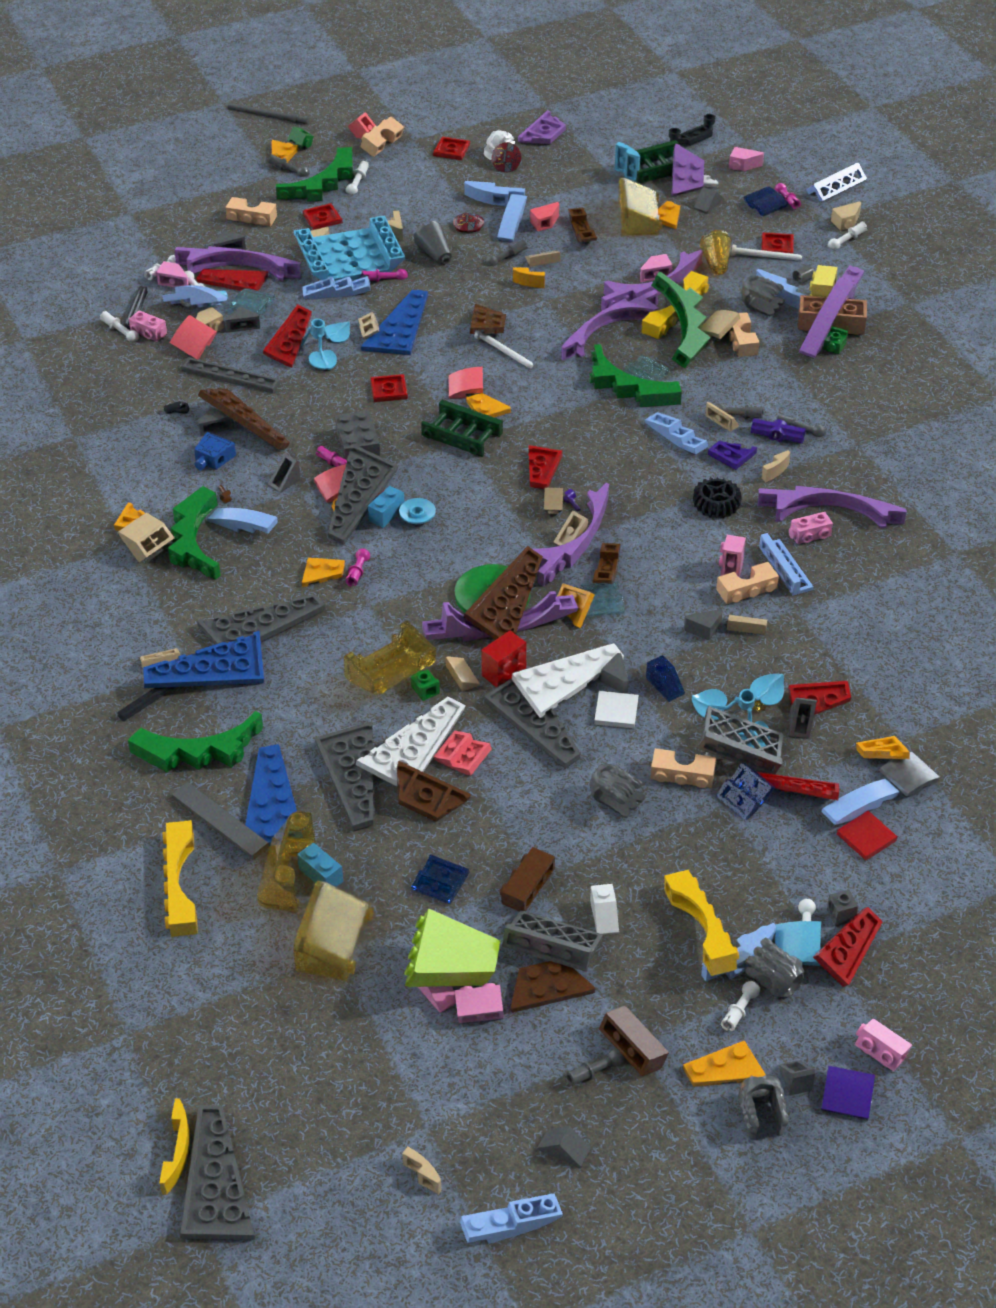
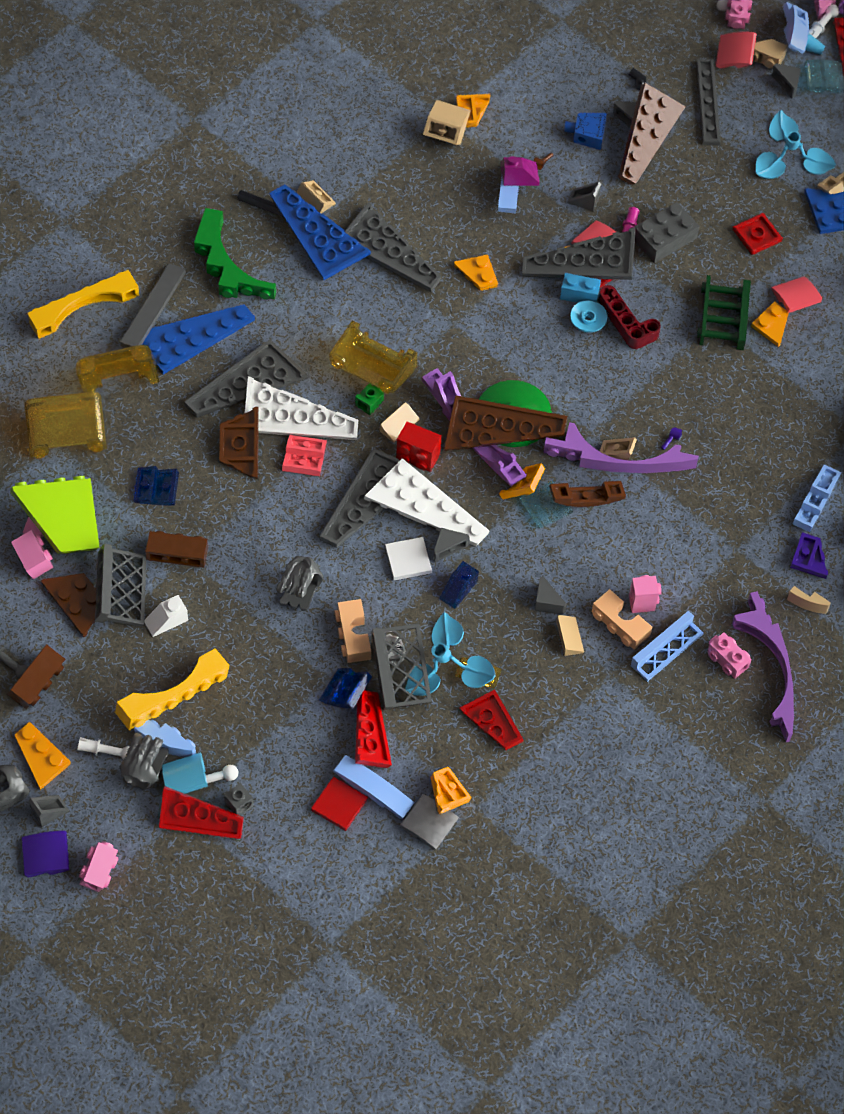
camera: 65 degrees right, 15 degrees up
(188, 517) = (496, 146): green arch -> none
(235, 504) = (519, 172): none -> magenta slope
(288, 339) = (774, 125): red wing -> none
(319, 865) = (129, 394): dark azure brick -> none
(355, 571) = (485, 297): dark pink pin -> none
(436, 490) = (612, 301): none -> dark red beam
(542, 465) = (711, 397): red wing -> none
(553, 500) = (660, 420): tan slope -> none
(717, 497) = (748, 564): black gear -> none
(801, 717) = (454, 710): dark grey slope -> none

